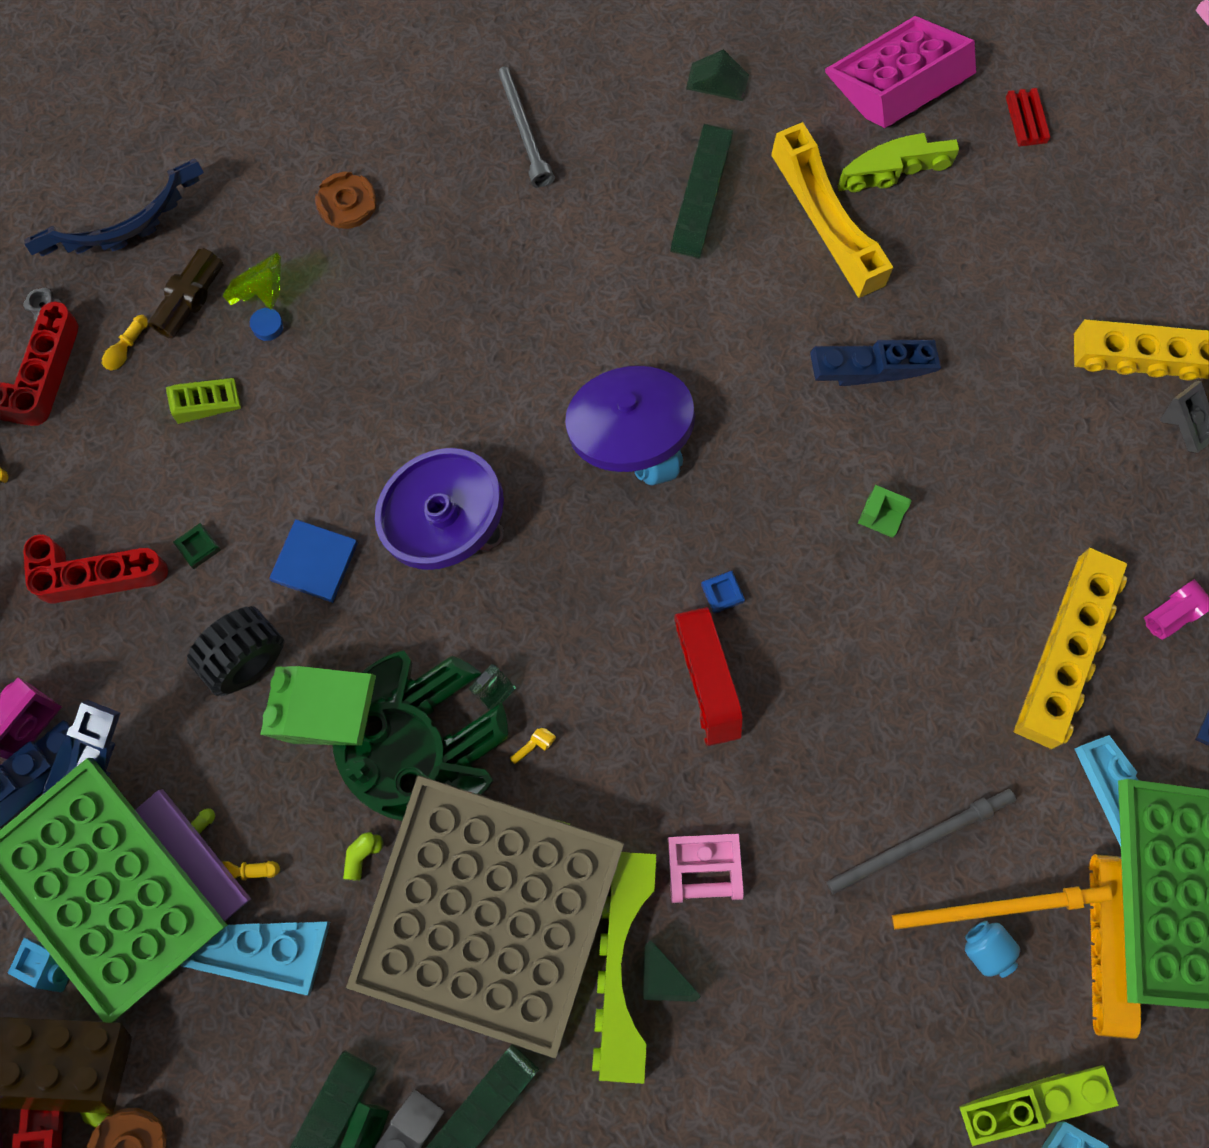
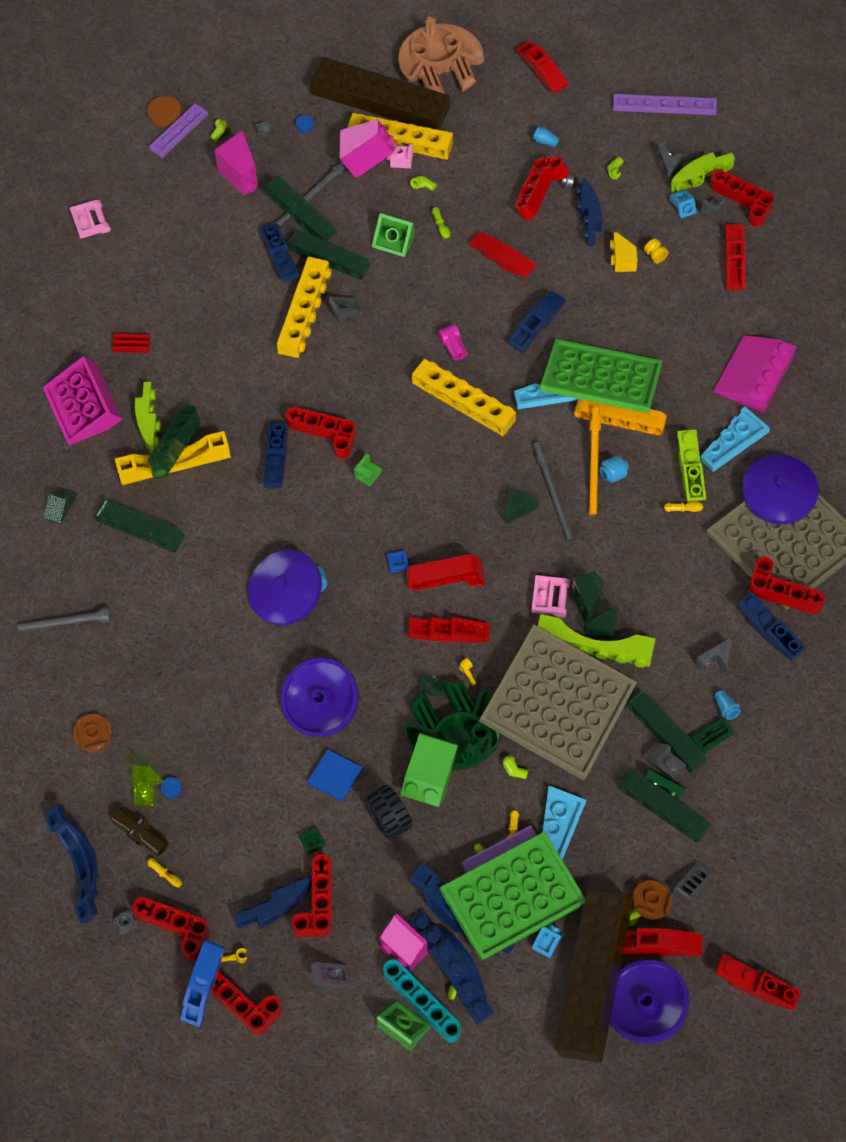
camera: 75 degrees left, 10 degrees down
(75, 508) = (282, 902): none -> dark blue slope
(205, 409) = (215, 843): lime slope -> none
(605, 699) = (448, 630): none -> red slope
(710, 940) = (588, 594): none -> clear green slope
(857, 201) = (174, 441): none -> clear green beam
(874, 781) = (519, 505): none -> clear green slope
(944, 421) = (299, 420): none -> red beam
(951, 1116) = (693, 506): none -> yellow piece

